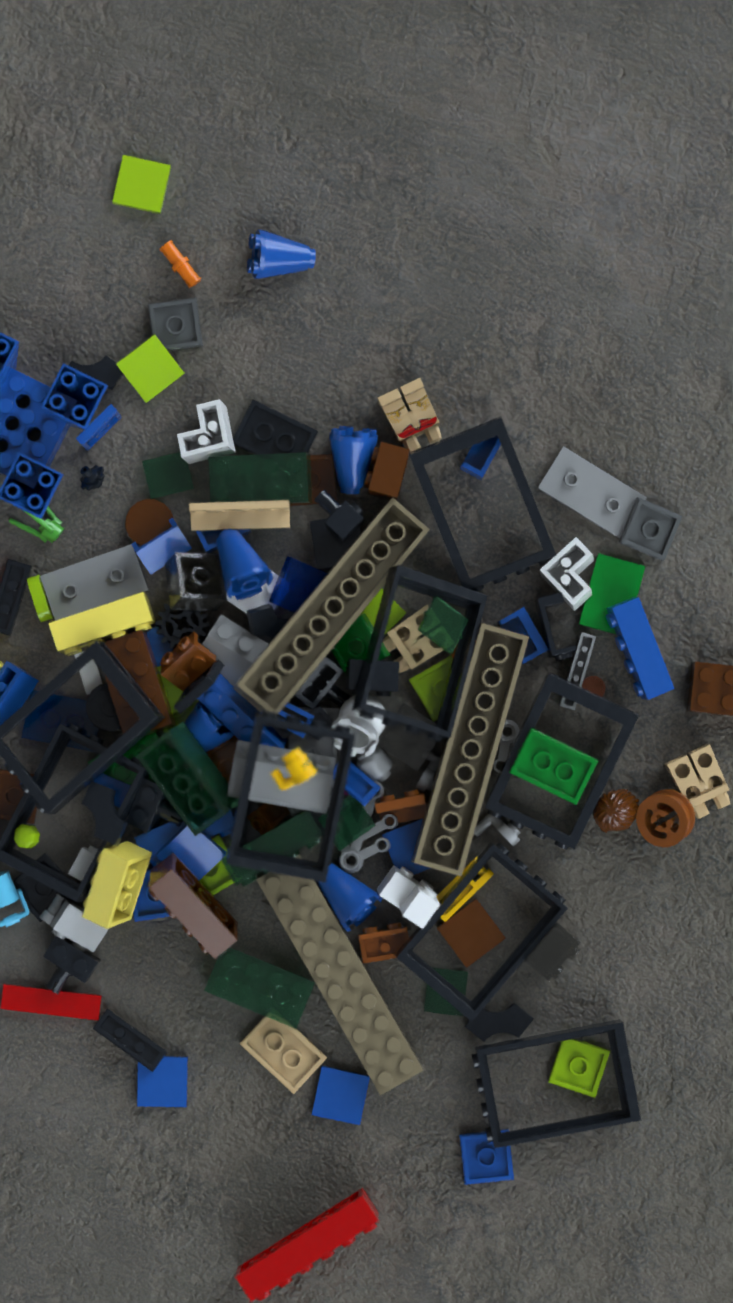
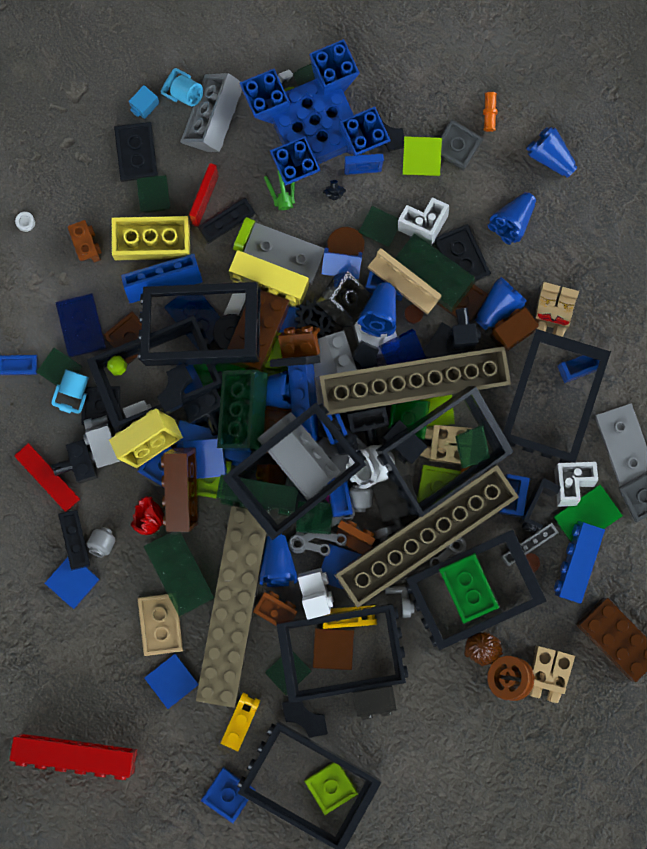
camera: 30 degrees right, 5 degrees down
(141, 184) = (505, 49): lime tile -> none
(158, 1020) = (101, 542): none -> light grey head
(183, 958) = (147, 517): none -> red hair
(275, 537) = (413, 314): none -> copper piece
(294, 356) = (513, 218): none -> blue cone
(298, 767) = (315, 454): yellow piece -> none
(440, 1079) = (240, 722): none -> yellow plate

